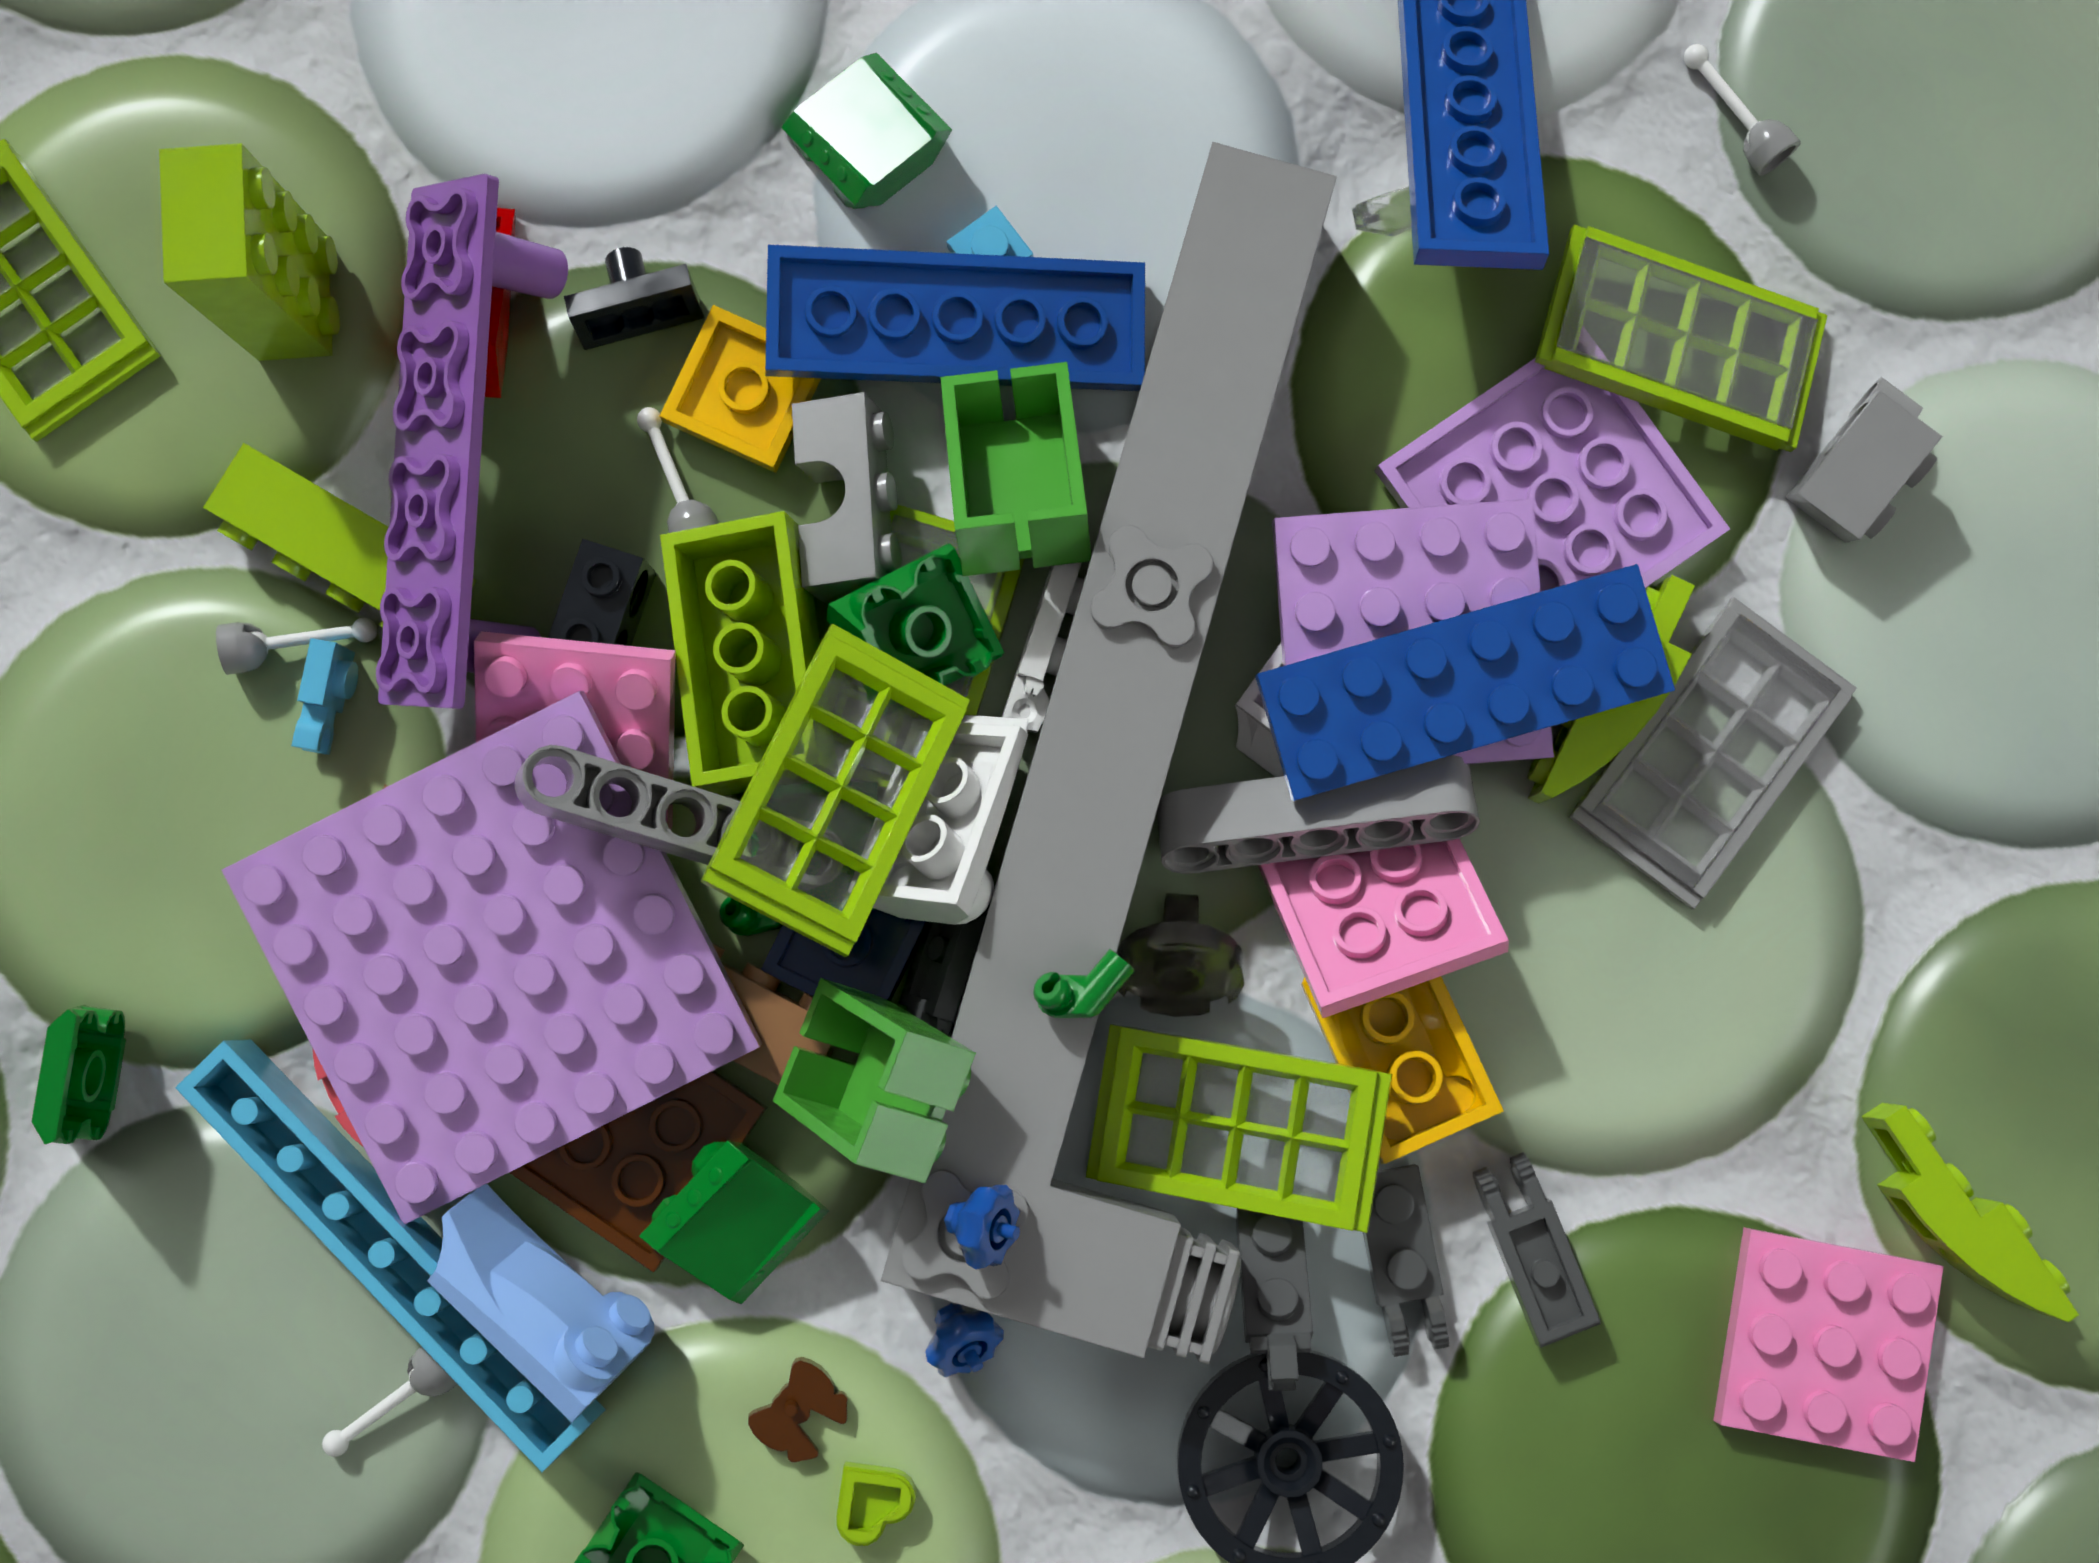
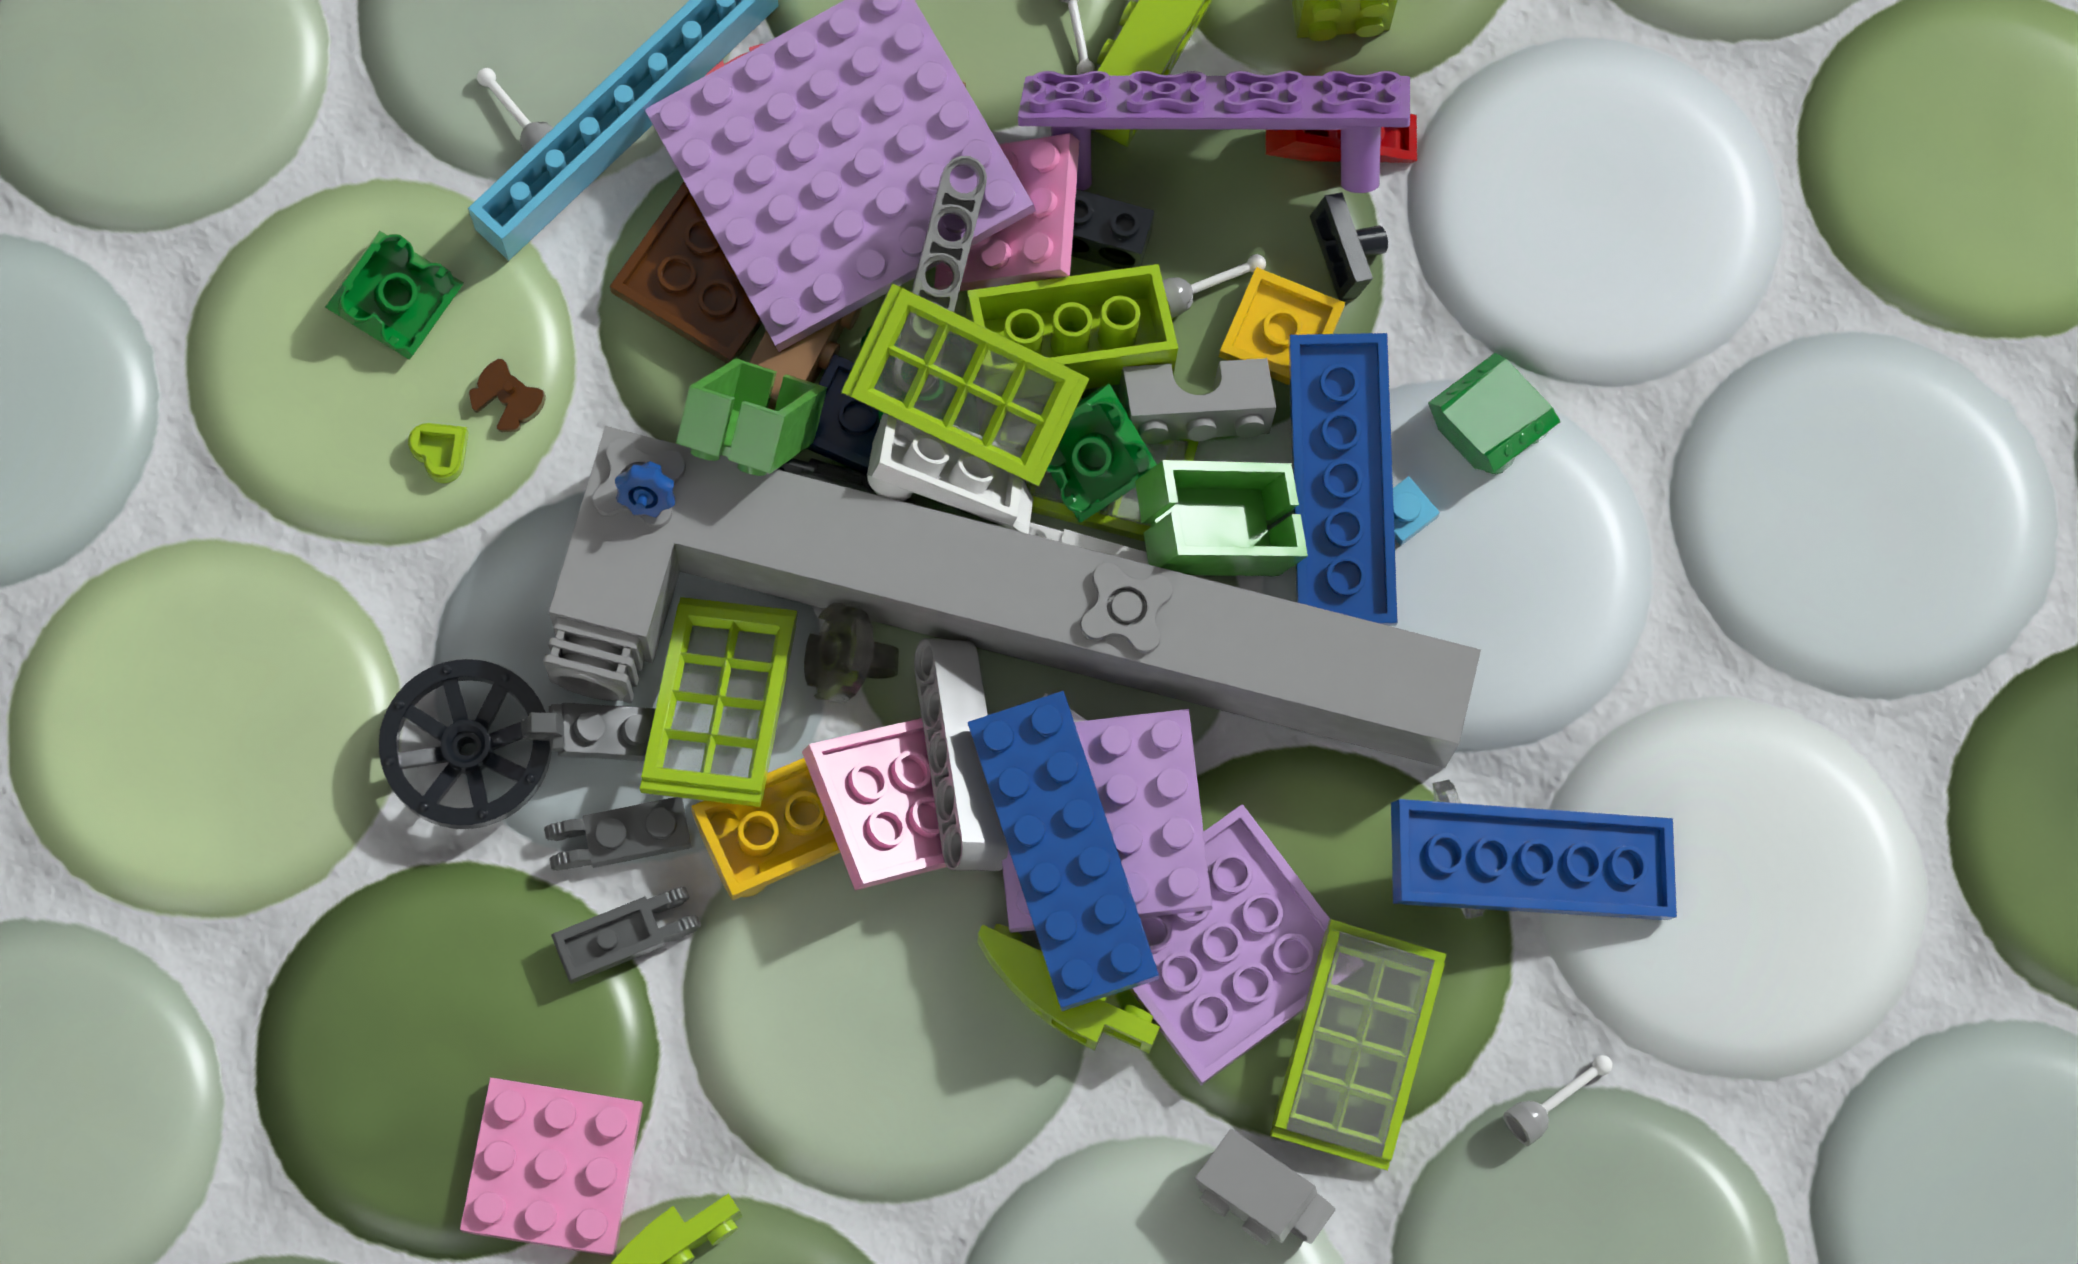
camera: 85 degrees right, 10 degrees down
(325, 684) = (1038, 41): medium azure plate -> none
(536, 1304) = (587, 202): light blue slope -> none
(733, 1220) = (648, 340): green slope -> none
(962, 1340) = (556, 507): blue piece -> none
(1082, 994) = (815, 558): green arm -> none
(1714, 754) = (1022, 1077): clear piece -> none

